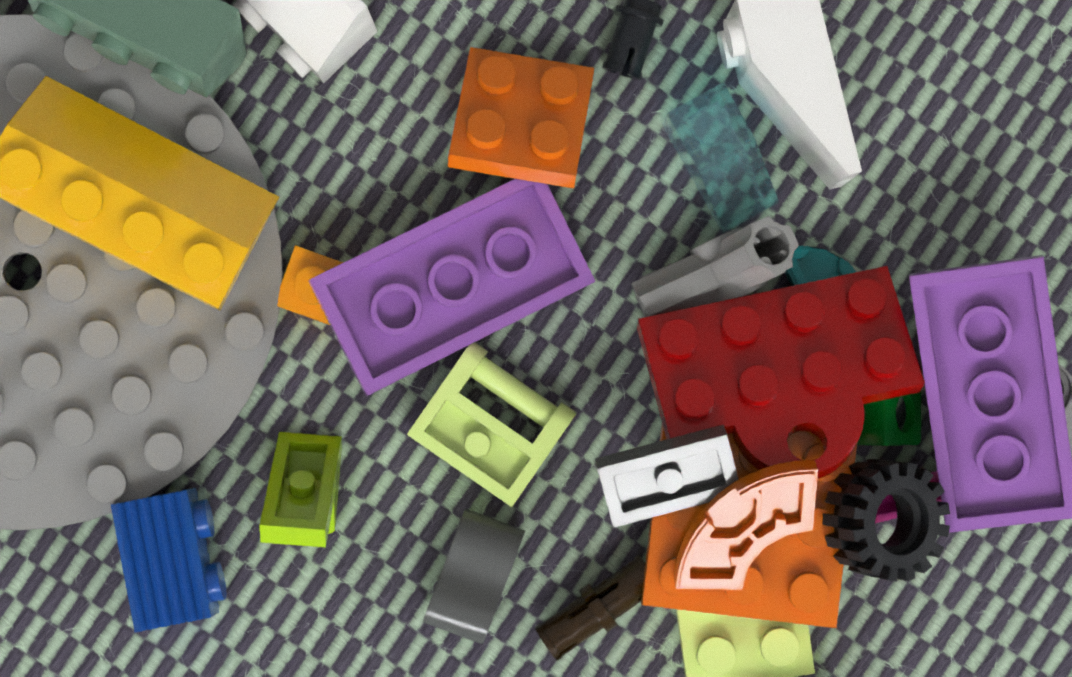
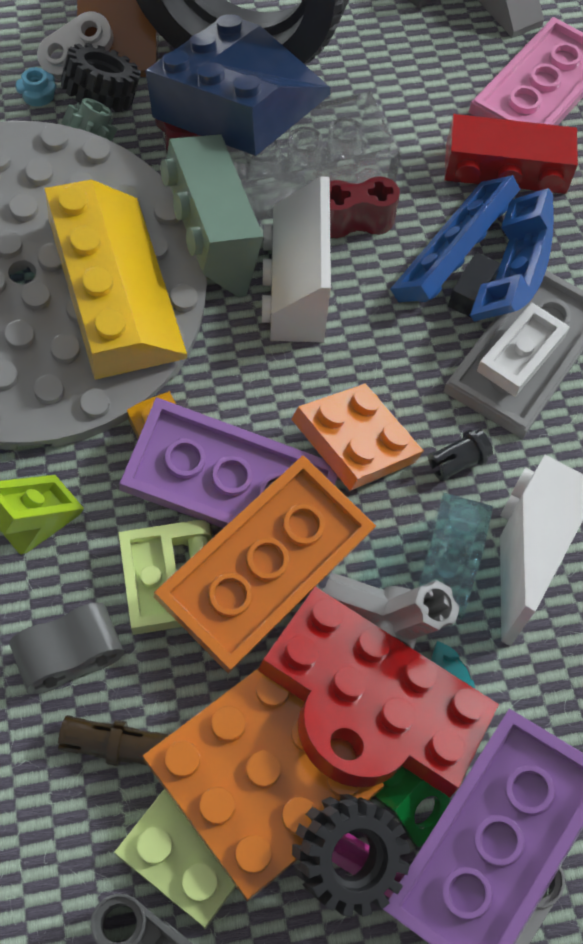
camera: 40 degrees right, 25 degrees down
(571, 334) = (264, 563): none -> orange plate
(666, 475) = (239, 680): plate -> none
(744, 522) = (256, 752): tile -> none

